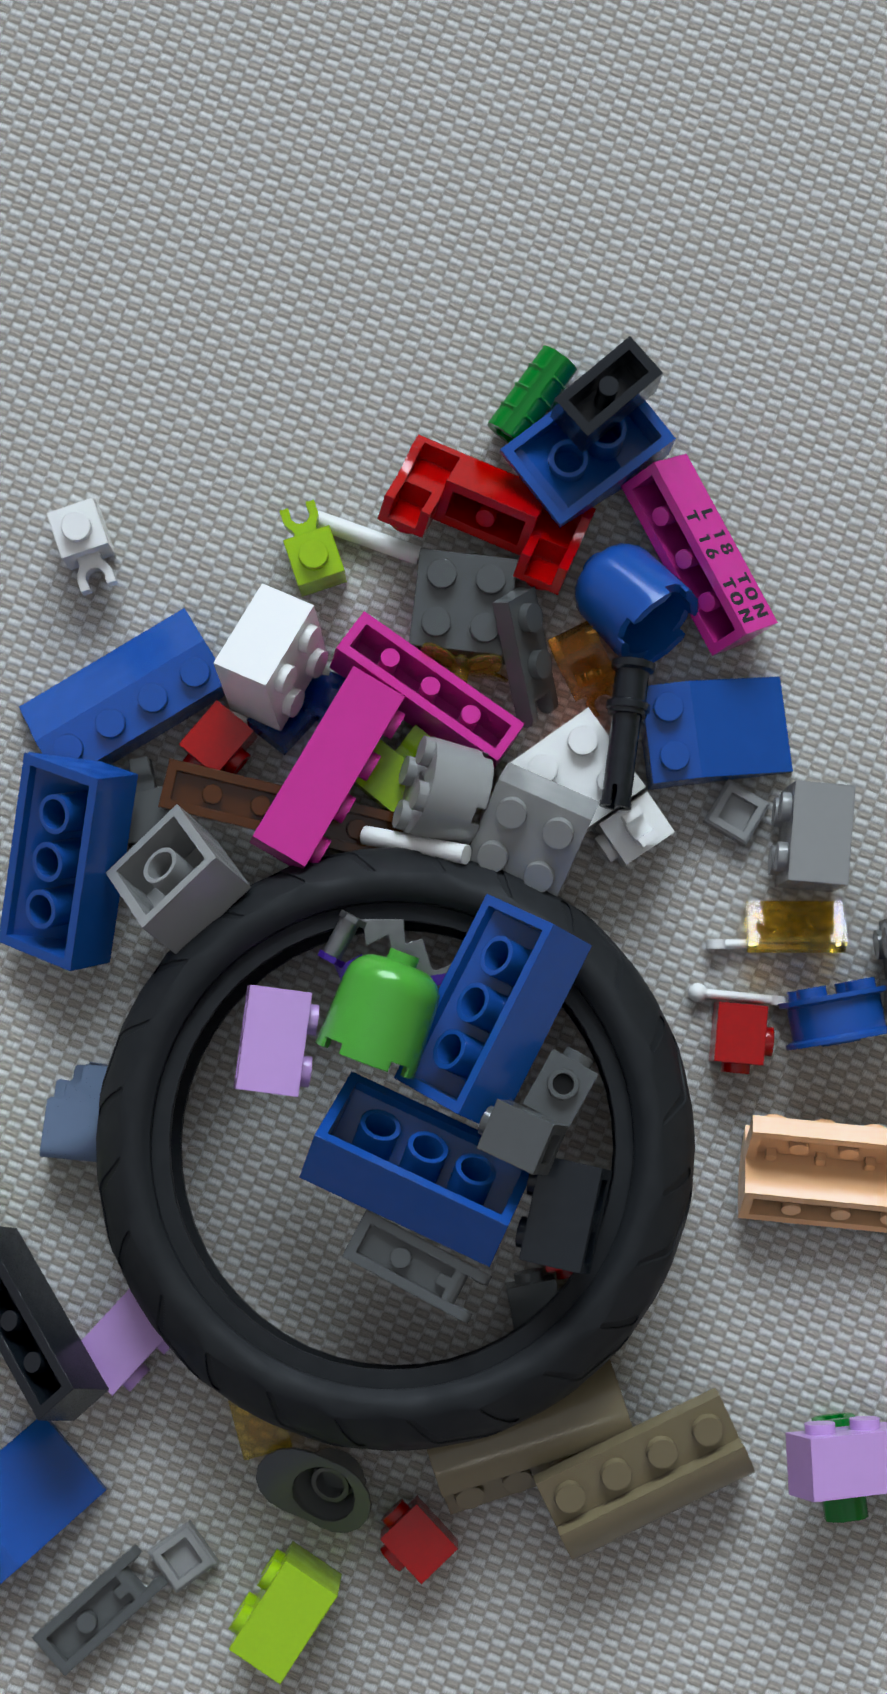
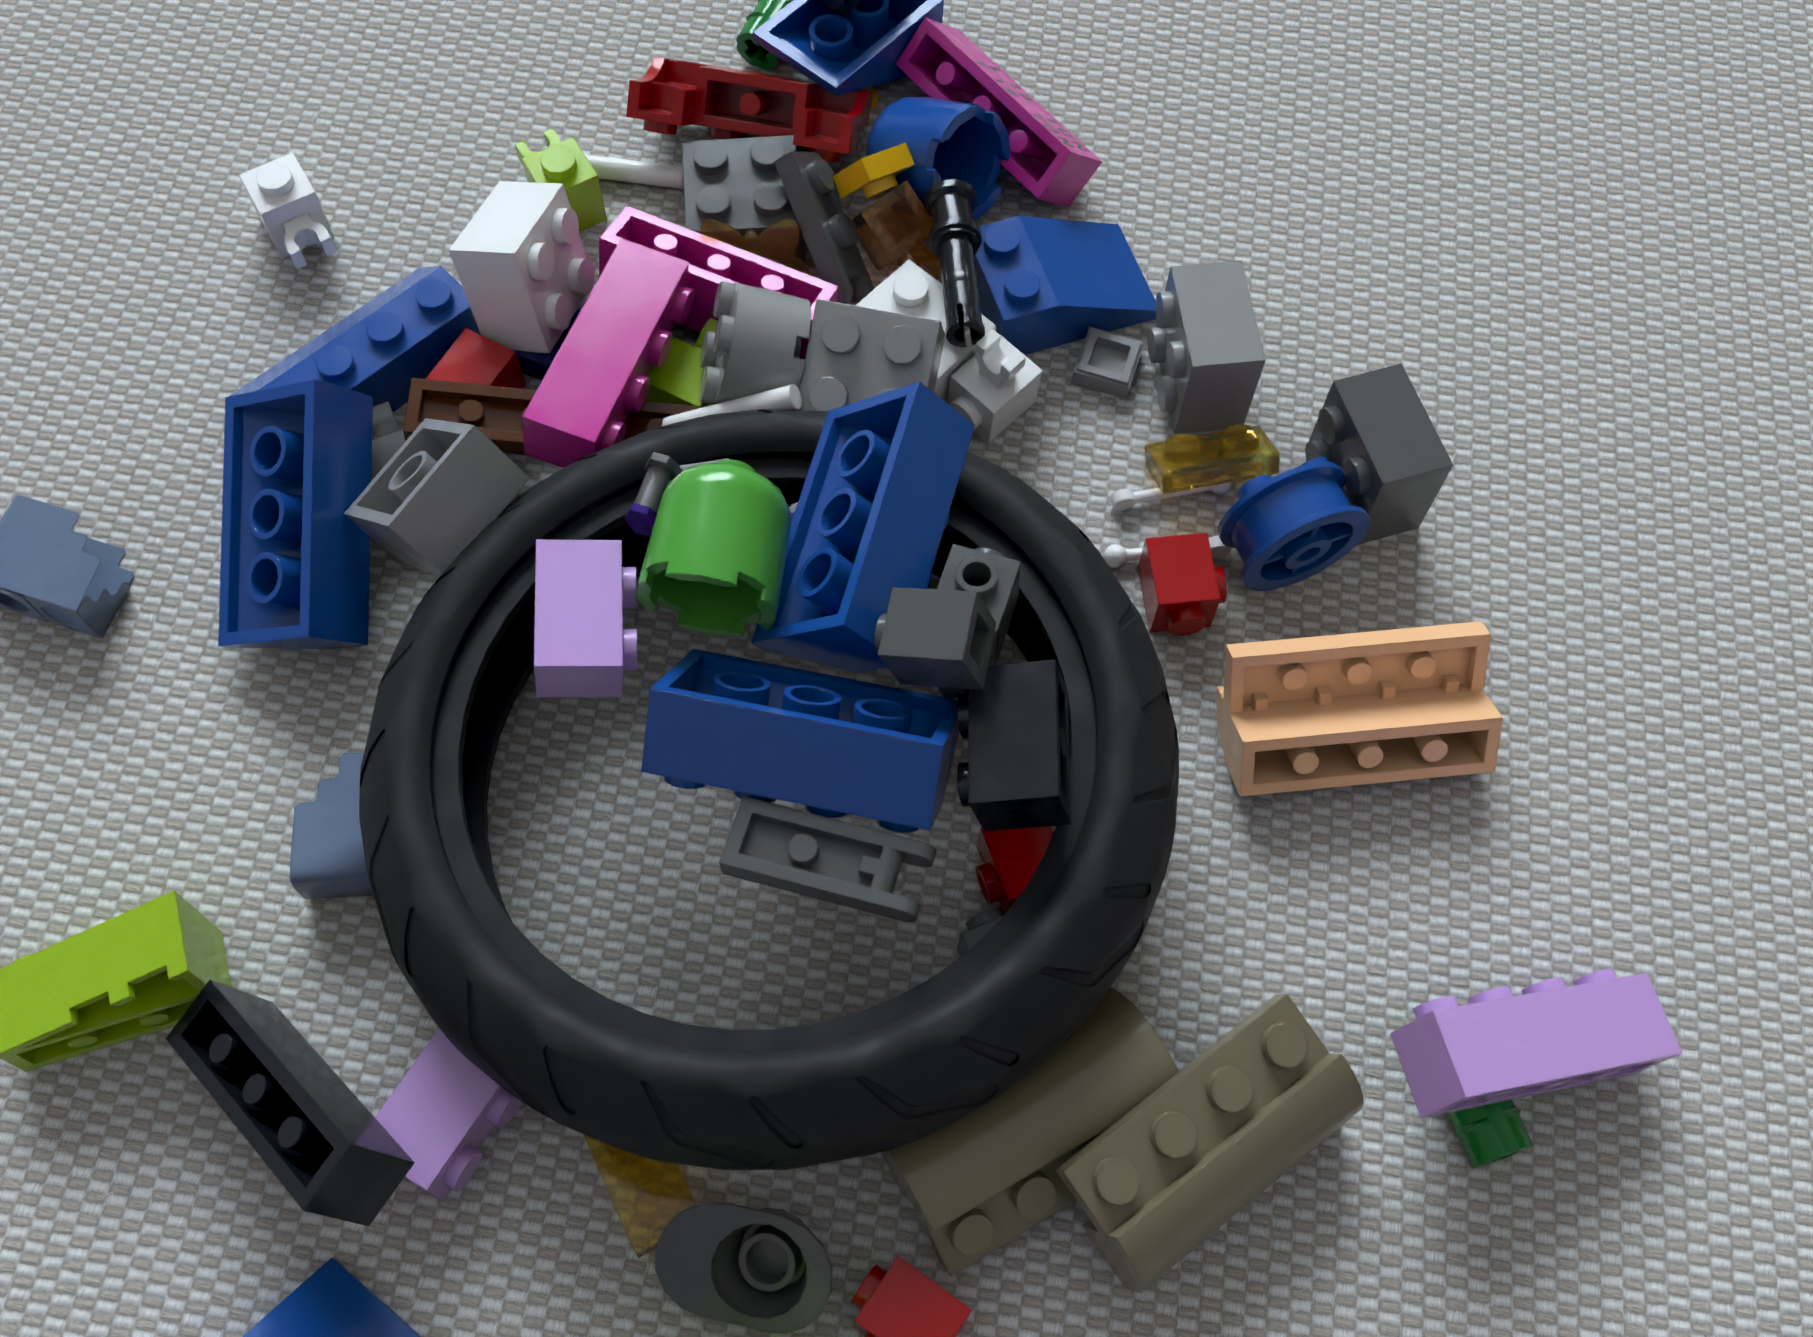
camera: 15 degrees left, 20 degrees down
(575, 624) = (874, 173): none -> yellow plate

